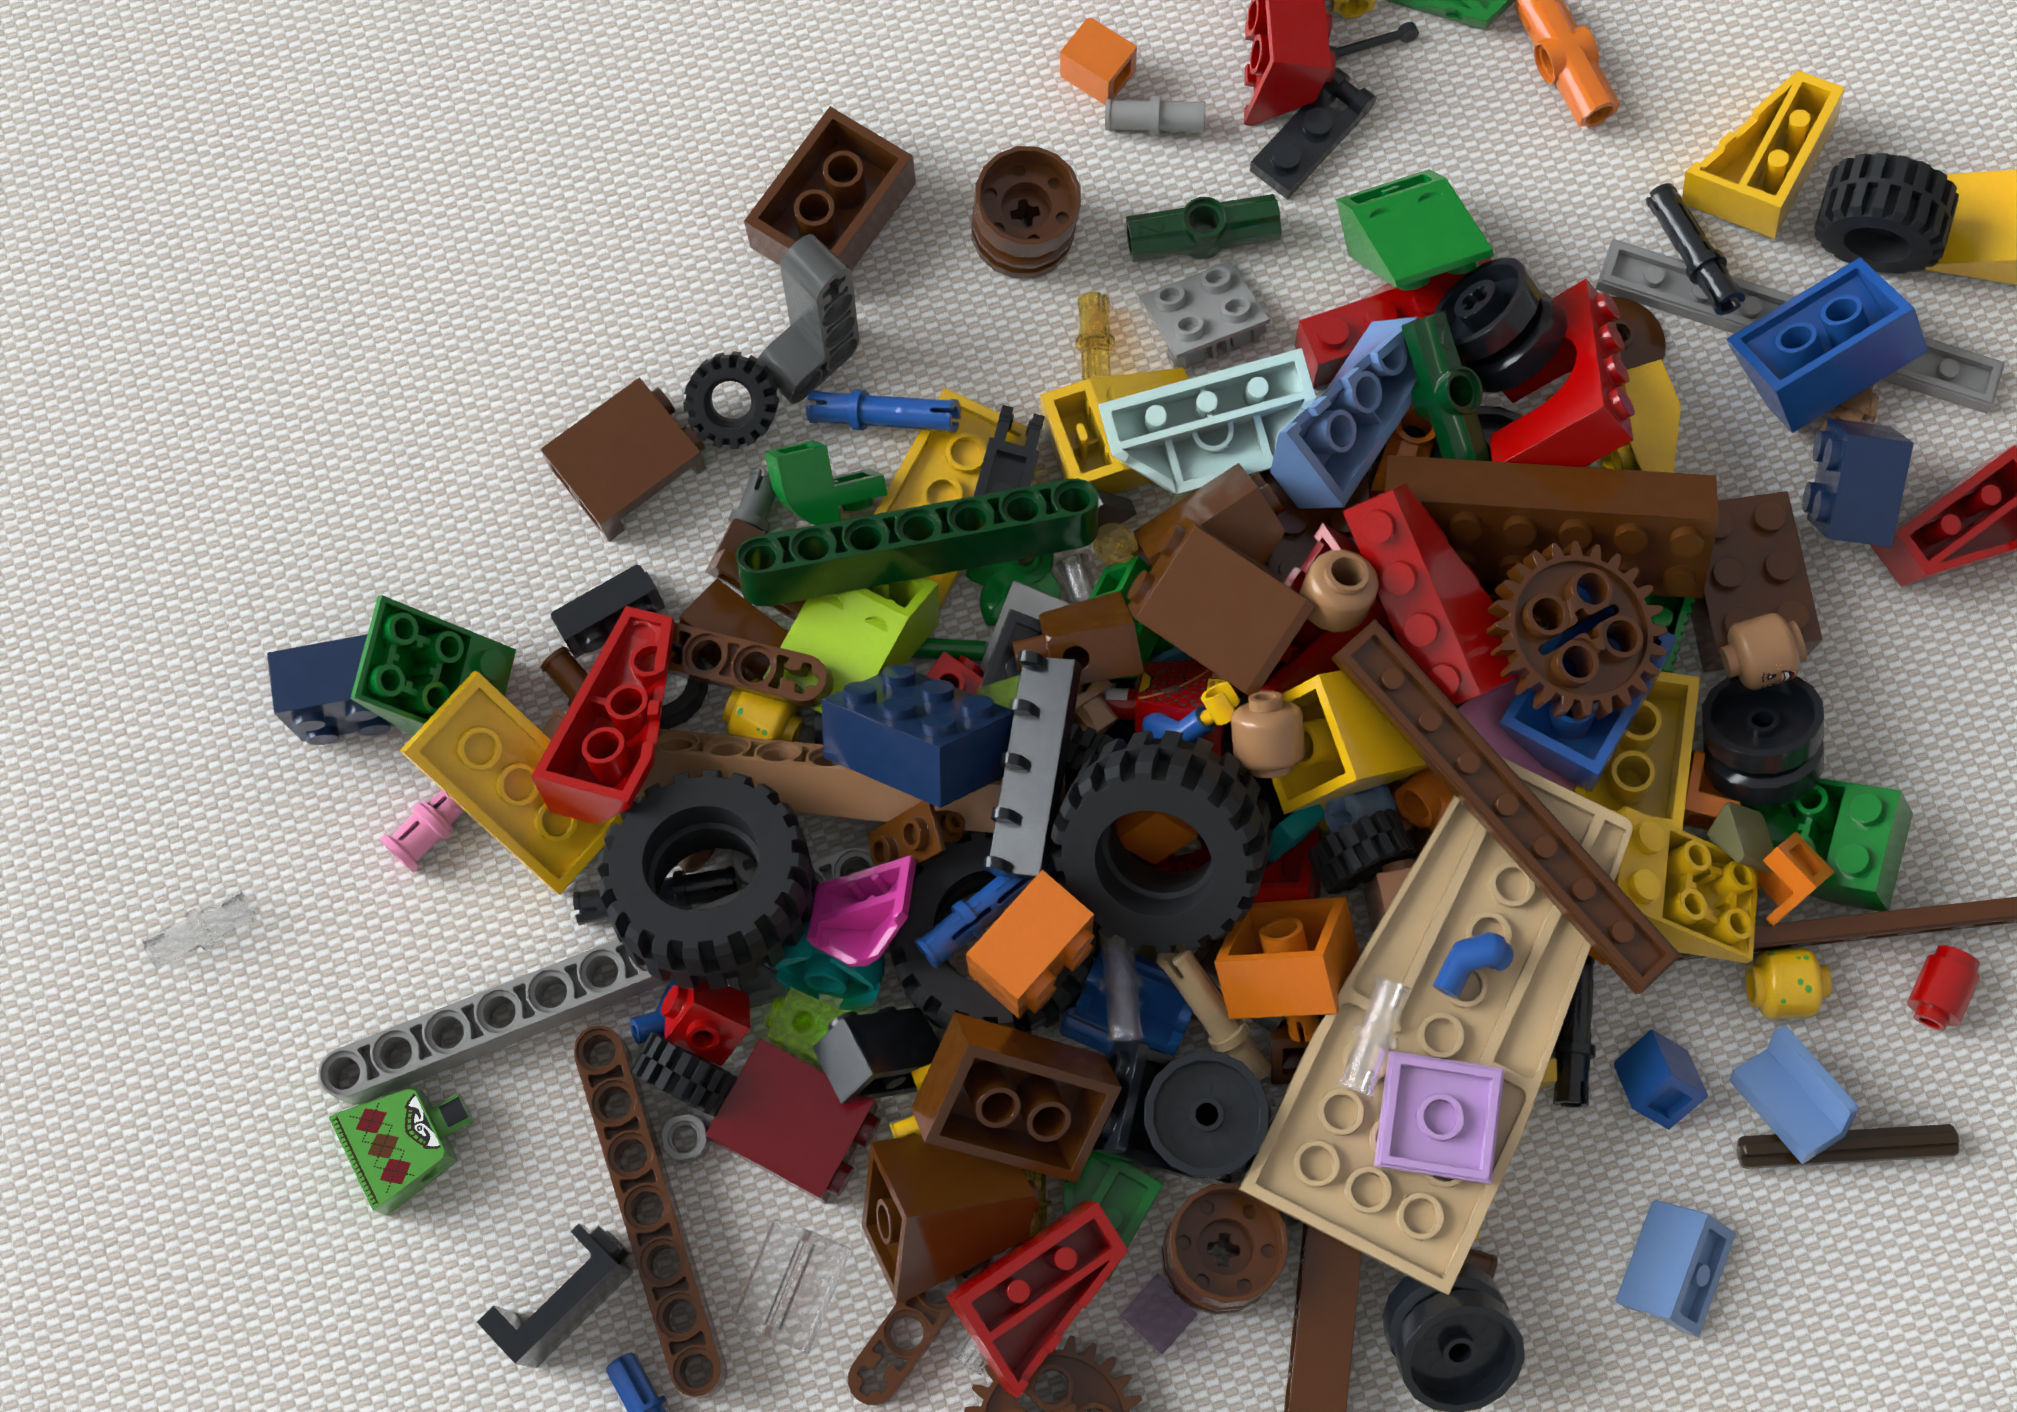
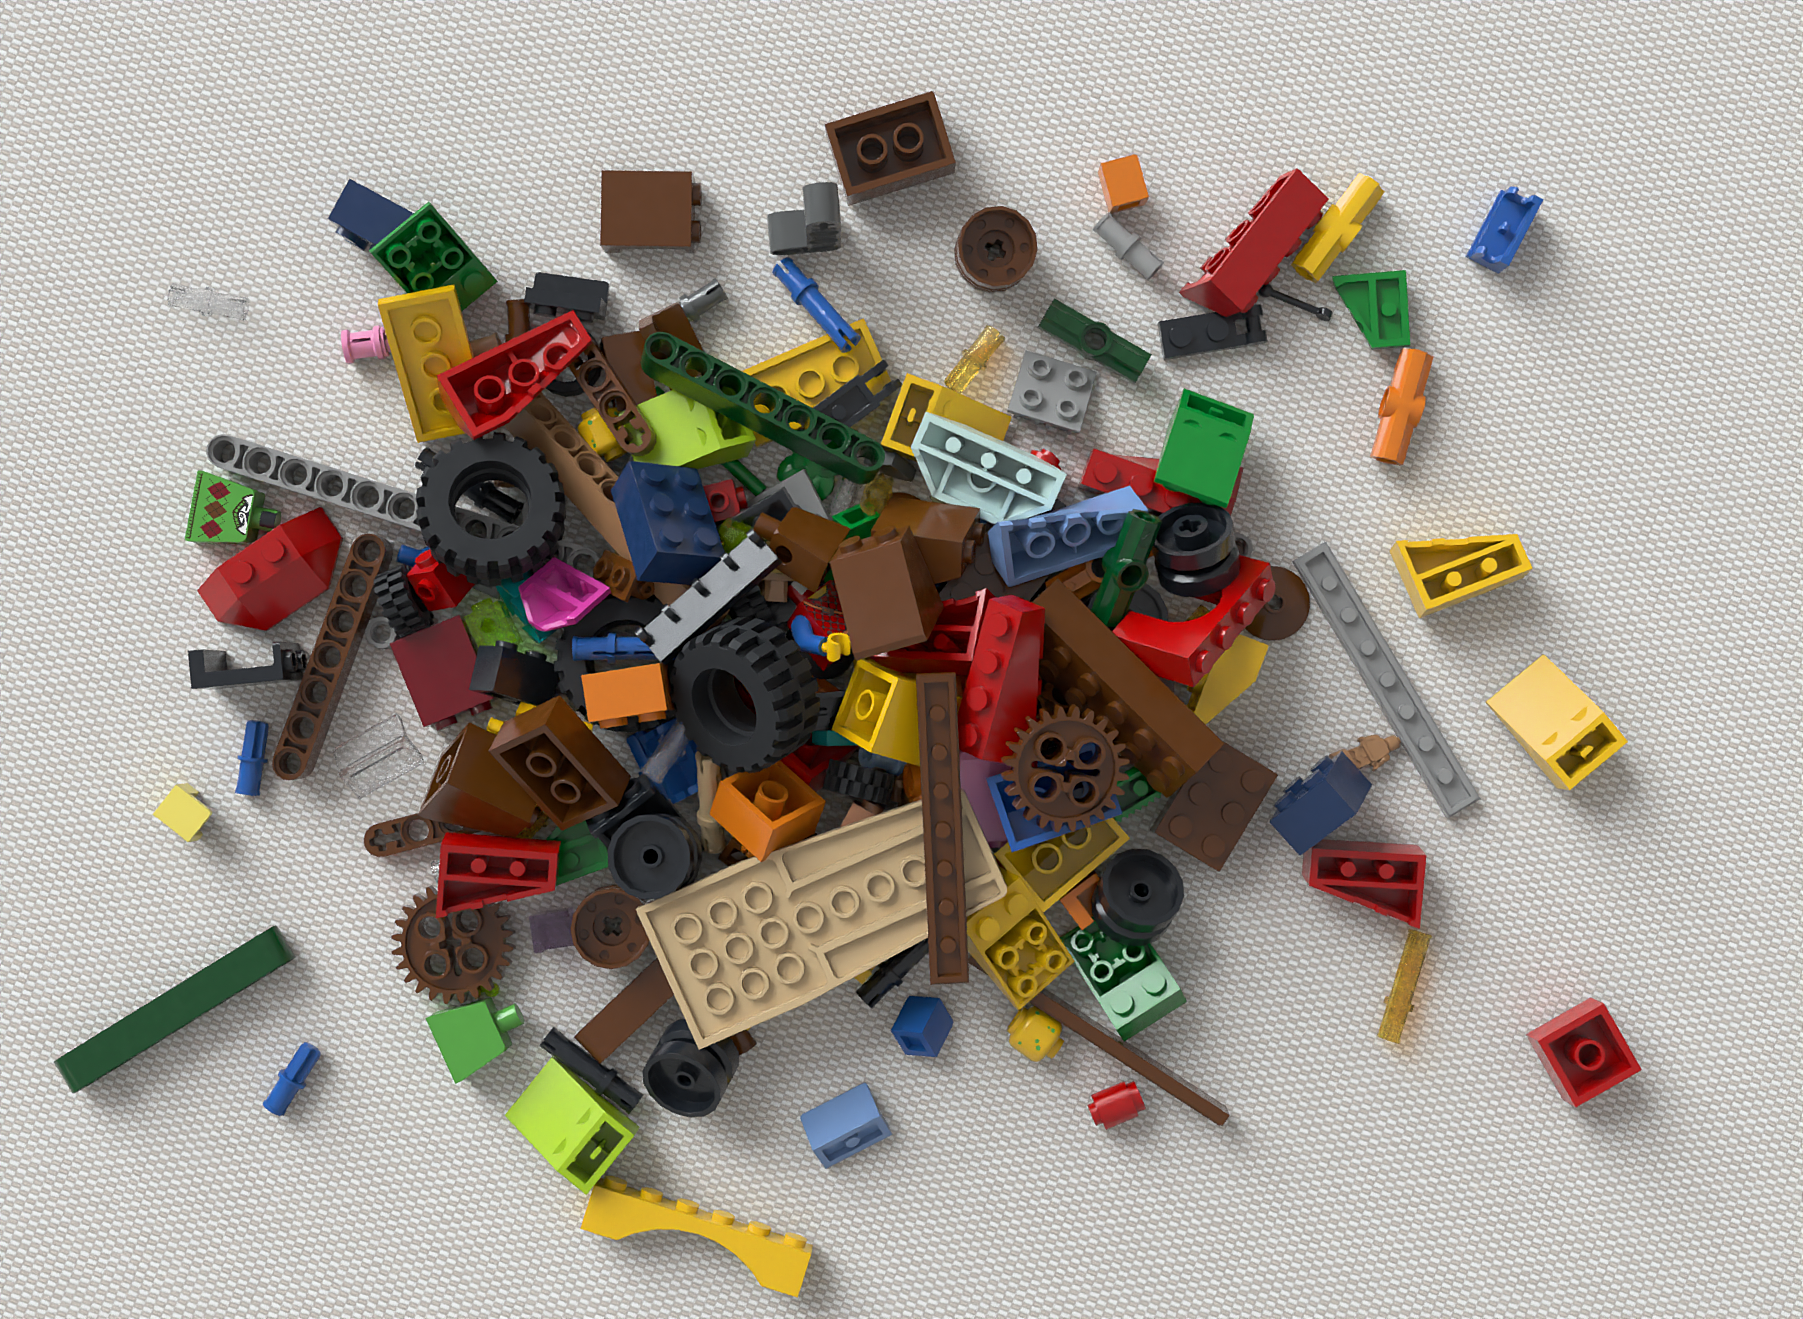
camera: 40 degrees right, 15 degrees up
(506, 1173) = (275, 573): none -> red wedge
(721, 429) = (750, 216): black tyre -> none
(807, 488) = (736, 325): green brick -> none
(1268, 735) = (847, 686): medium nougat head -> none
(1341, 588) = (963, 638): medium nougat head -> none
(1375, 1036) = (768, 892): clear pin -> none
(1439, 1117) = (768, 959): lavender tile -> none
(1470, 955) = (856, 891): blue arm -> none
(1703, 262) = (1360, 602): black pin -> none
(1742, 835) = (1075, 943): olive slope -> none
(1763, 651) = (1173, 854): medium nougat head -> none
(1795, 1096) = (981, 1094): medium blue panel -> none
(1796, 875) = (1084, 984): orange panel -> none
(1828, 344) = (1383, 707): blue slope -> none
(1855, 1147) = (991, 1140): dark brown axle -> none
(1887, 212) = (1486, 661): black tyre -> none

